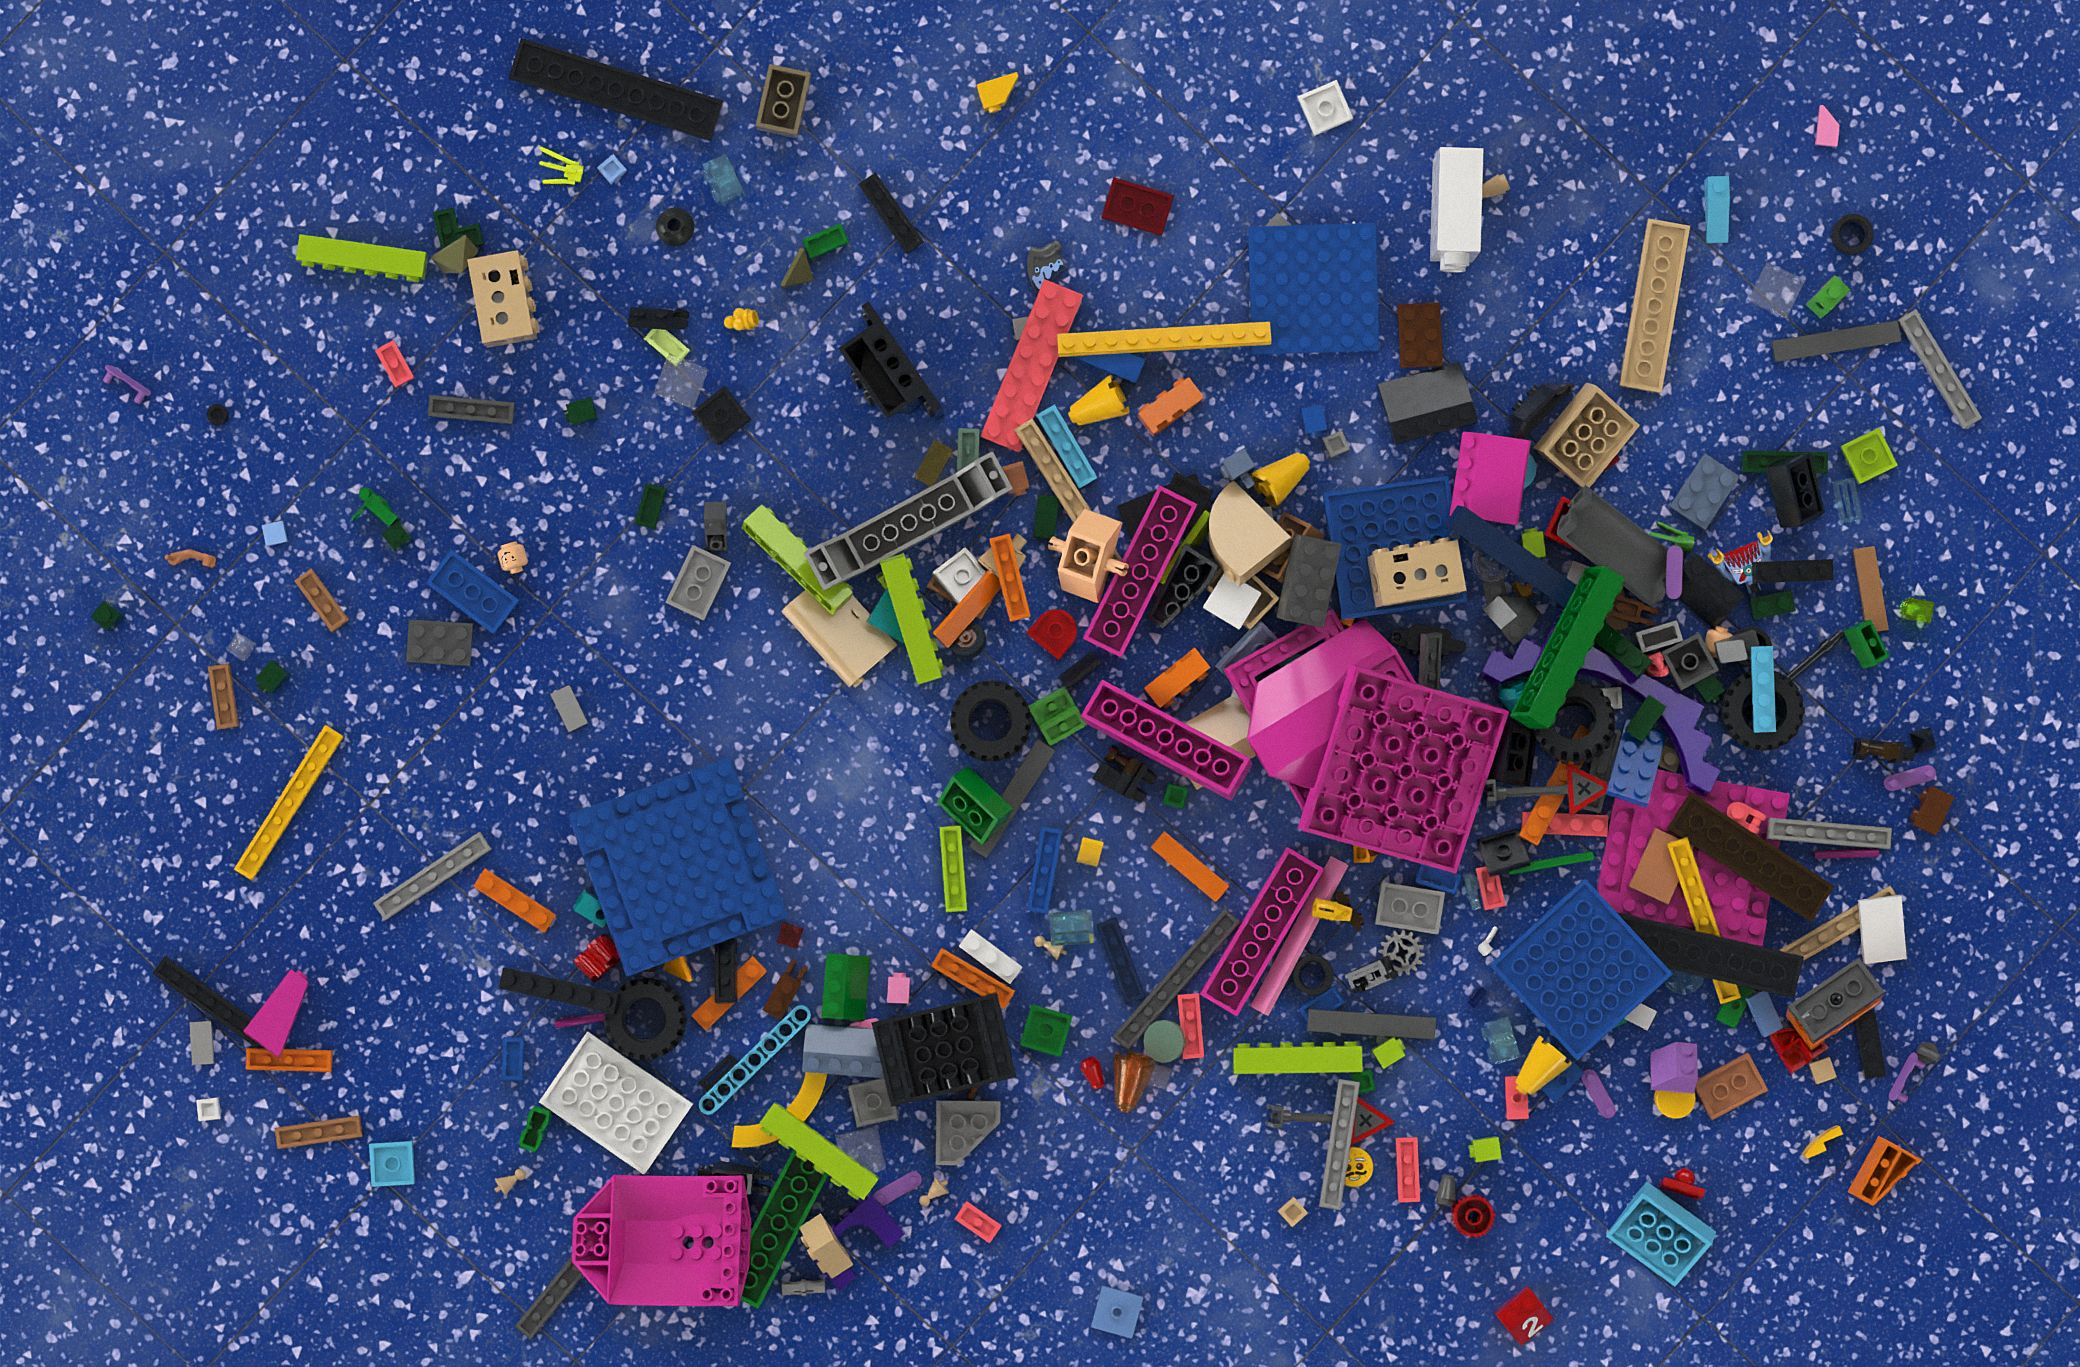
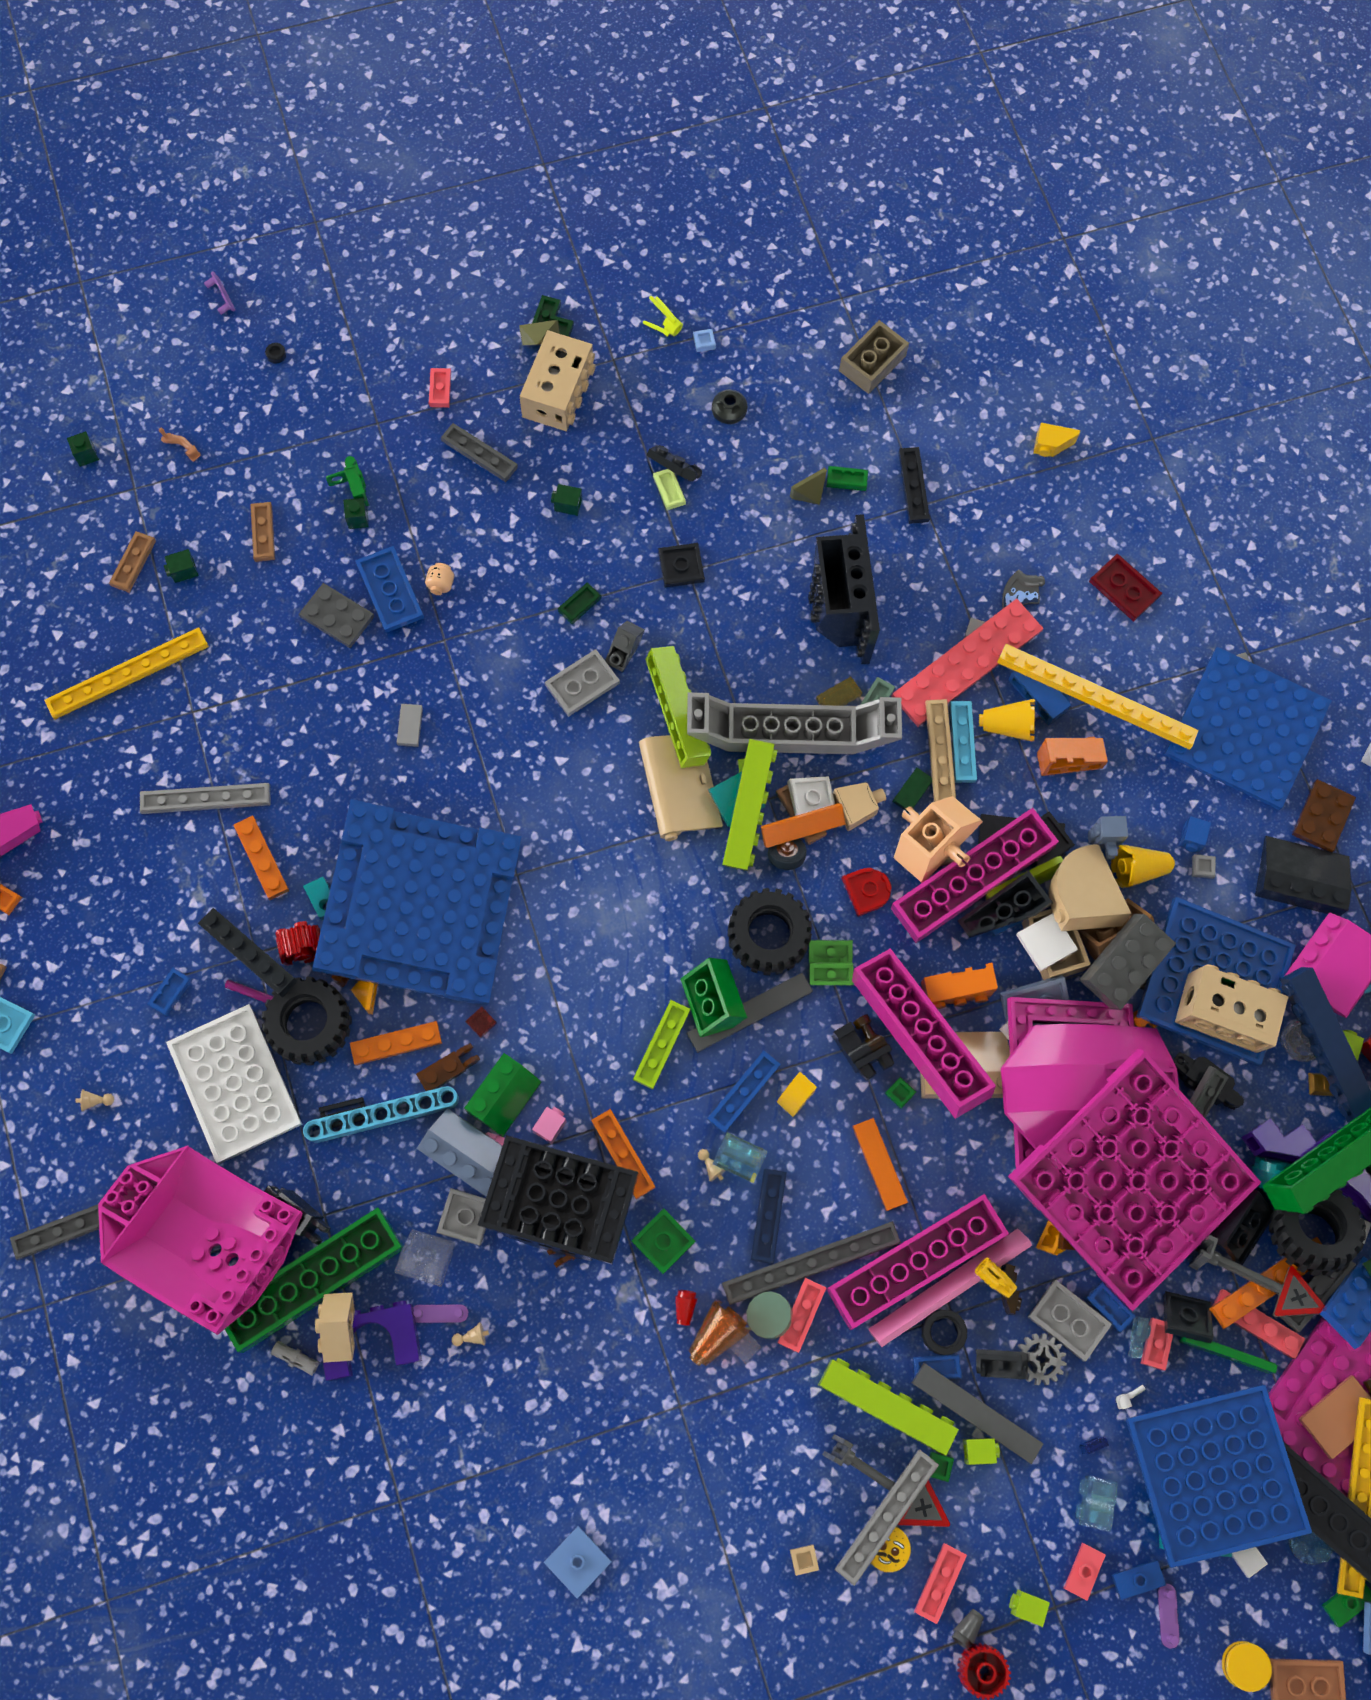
camera: 25 degrees right, 15 degrees down
(241, 646) = (173, 531): clear tile -> none
(274, 533) = (259, 461): light blue tile -> none
(361, 257) = (465, 298): lime brick -> none
(534, 1134) = (150, 1060): green brick -> none
(616, 89) = (743, 286): black plate -> none
(681, 381) = (664, 519): clear tile -> none
(723, 180) = (790, 390): clear light blue brick -> none
(726, 971) = (404, 1020): black tile -> none
(742, 319) = (743, 500): yellow piece -> none
(801, 1107) = (378, 1188): yellow tile -> none
(818, 1150) = (386, 1230): lime brick -> none
(962, 1127) = (533, 1289): light grey plate -> none
(978, 1222) = (495, 1390): coral plate -> none
(990, 956) = (650, 1143): white plate -> none
(1010, 577) = (855, 817): orange plate -> none
(1017, 477) = (904, 749): nougat slope -> none
(1079, 670) = (873, 934): black slope -> none
(1325, 108) = (1327, 594): white tile -> none
(1491, 590) = (1290, 1071): dark grey plate -> none
(1512, 616) = (1297, 1100): dark grey slope -> none
(1540, 1067) = (1127, 1553): yellow cone -> none
(1674, 1068) = (1264, 1634): medium lavender slope -> none

